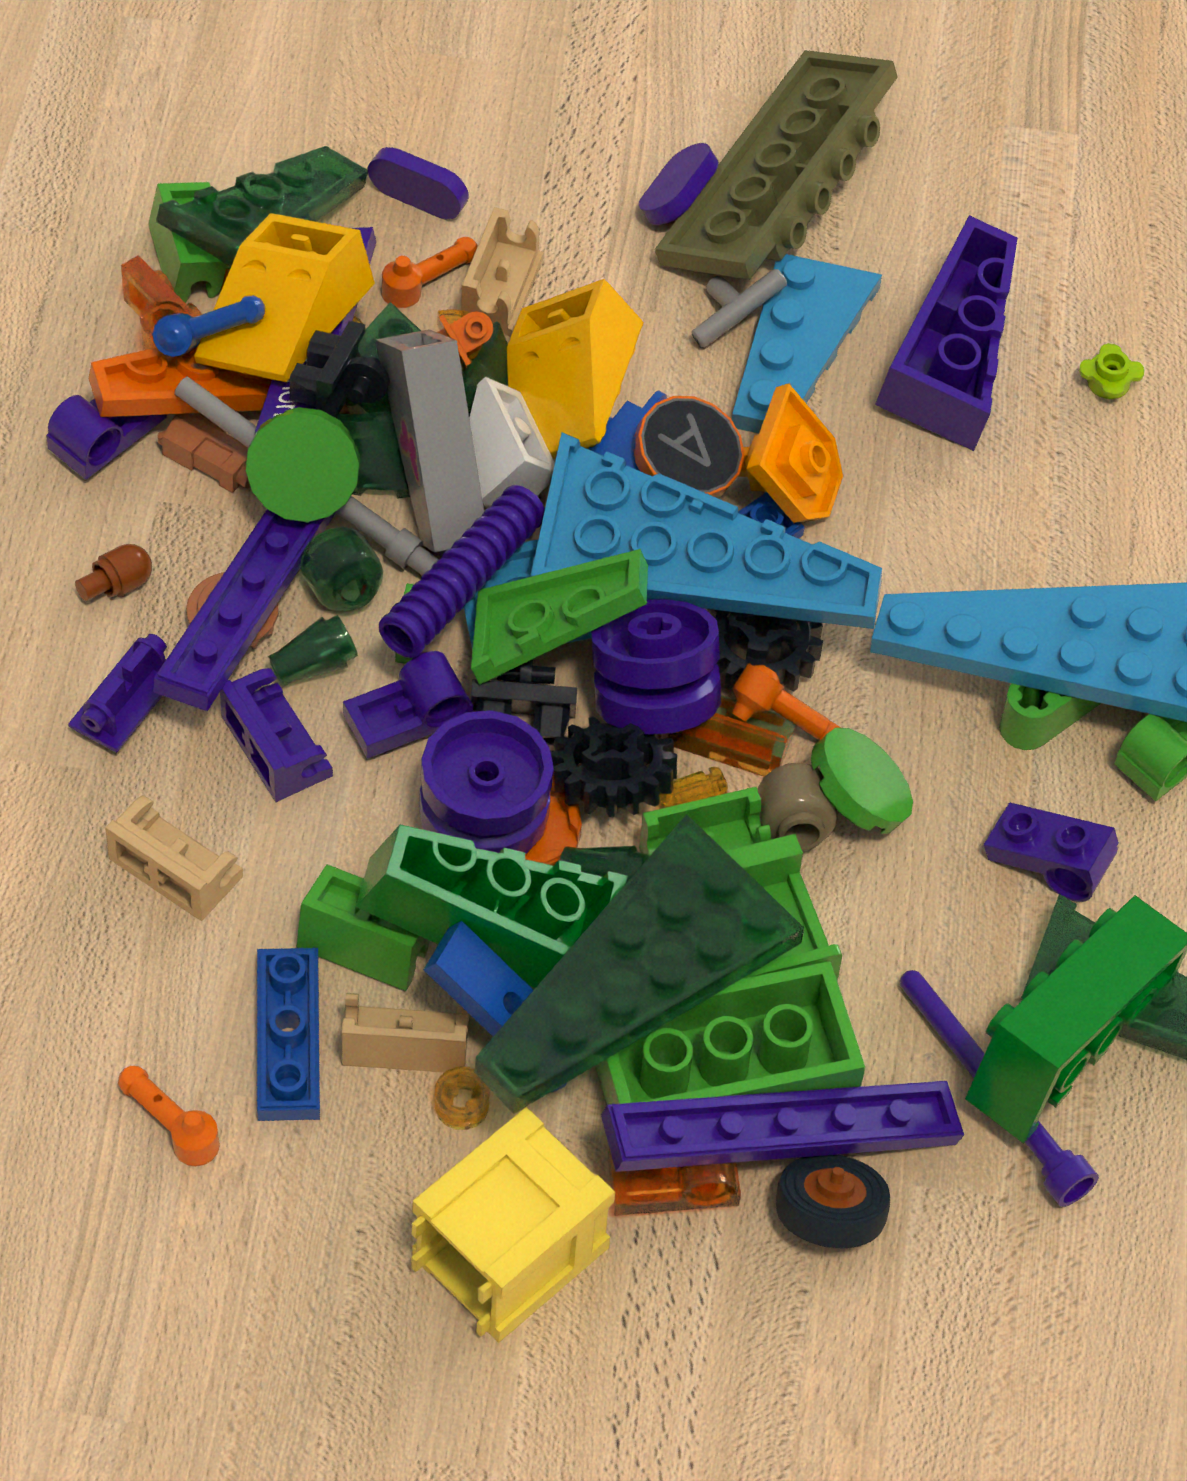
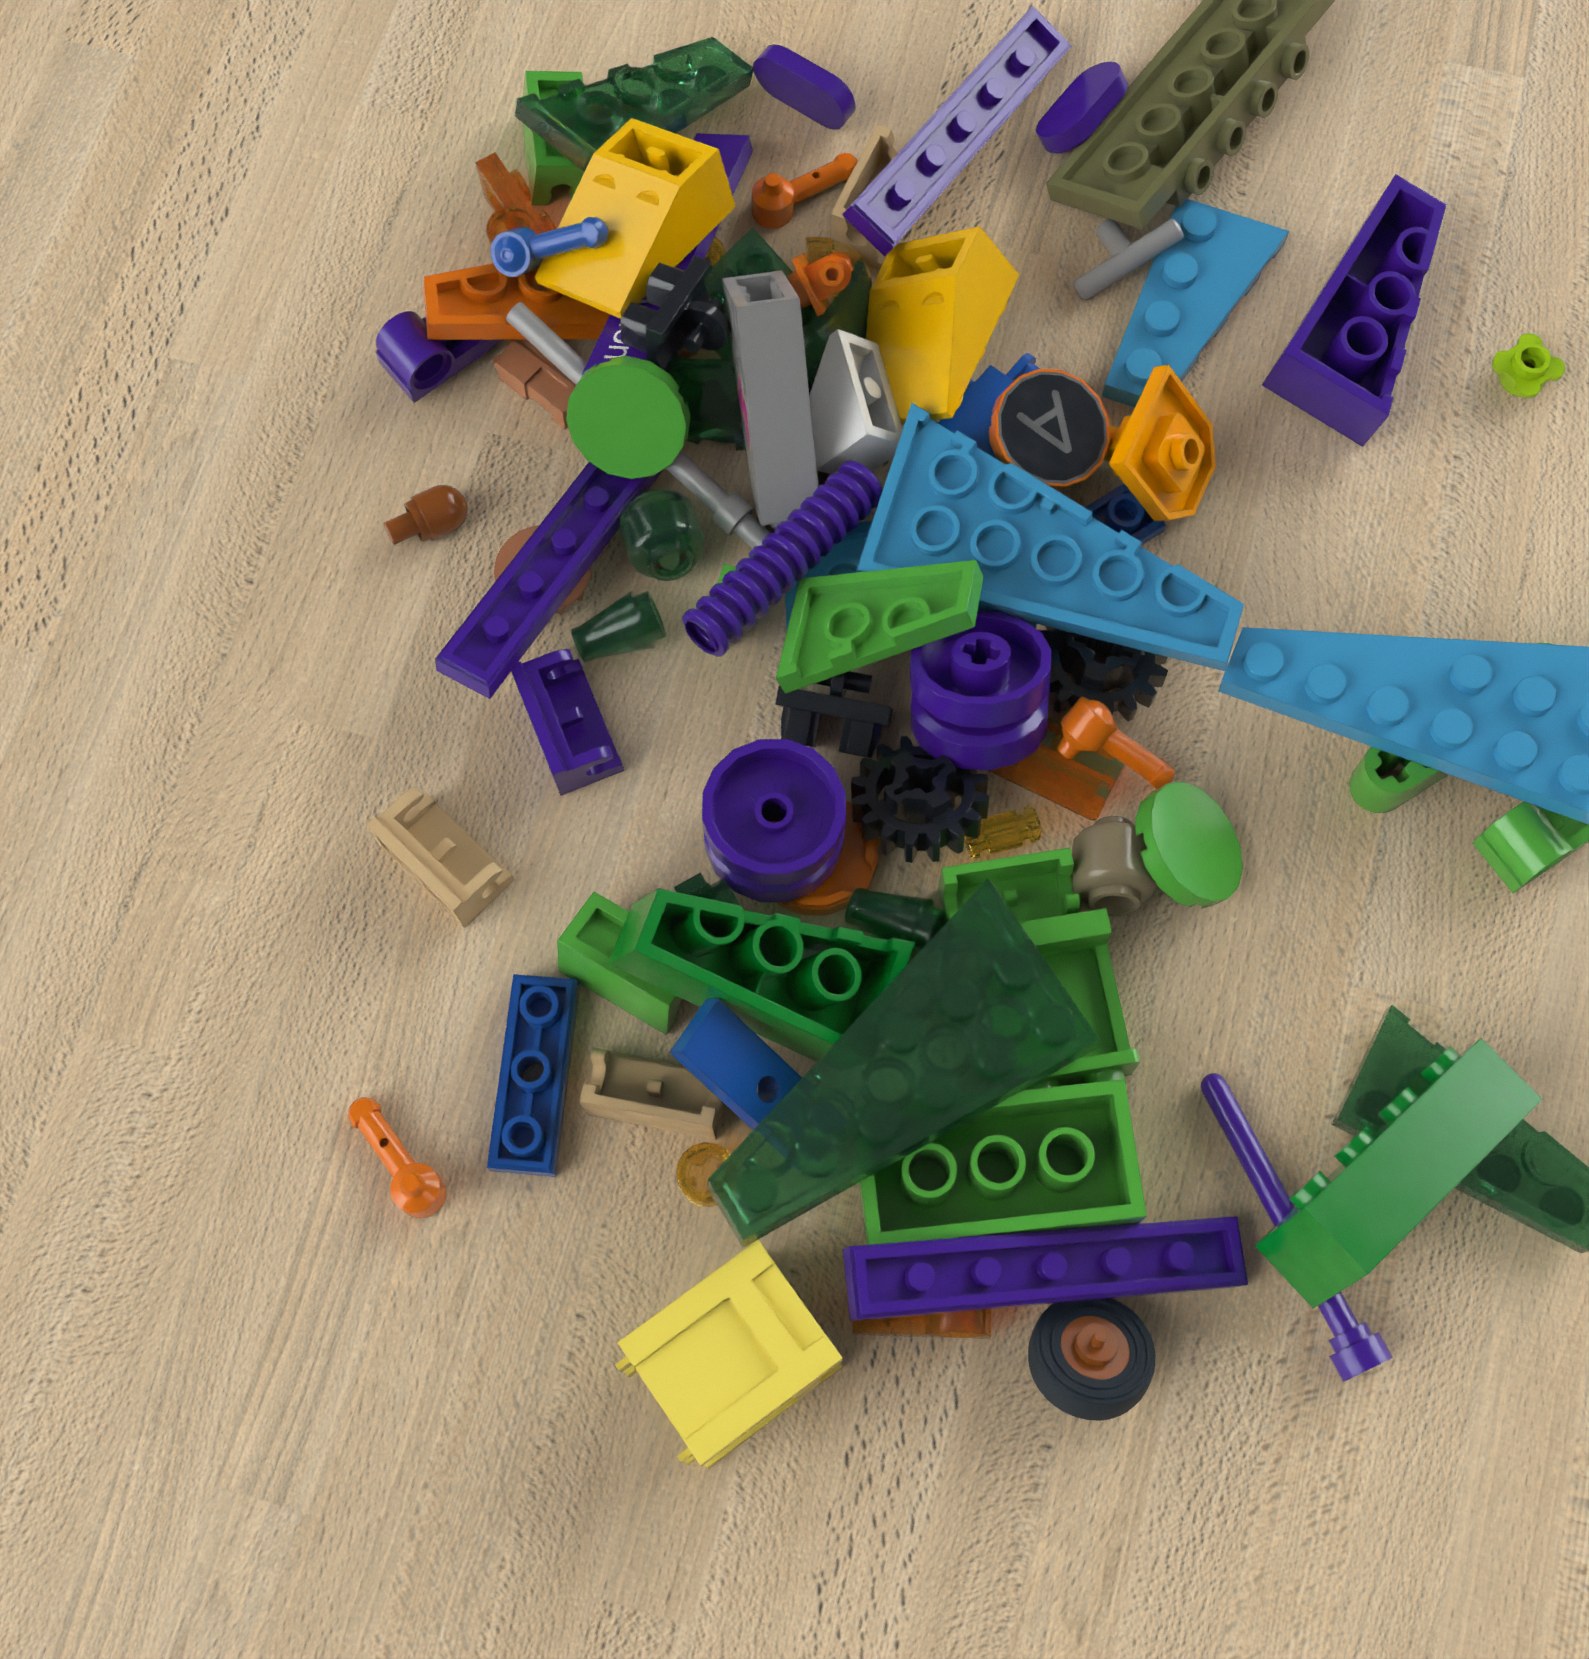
camera: 15 degrees right, 15 degrees up
(123, 696) = (409, 668): dark purple hinge -> none
(407, 708) = (712, 705): dark purple plate -> none
(568, 209) = (956, 132): none -> tile
(1062, 848) = (1399, 946): dark purple plate -> none

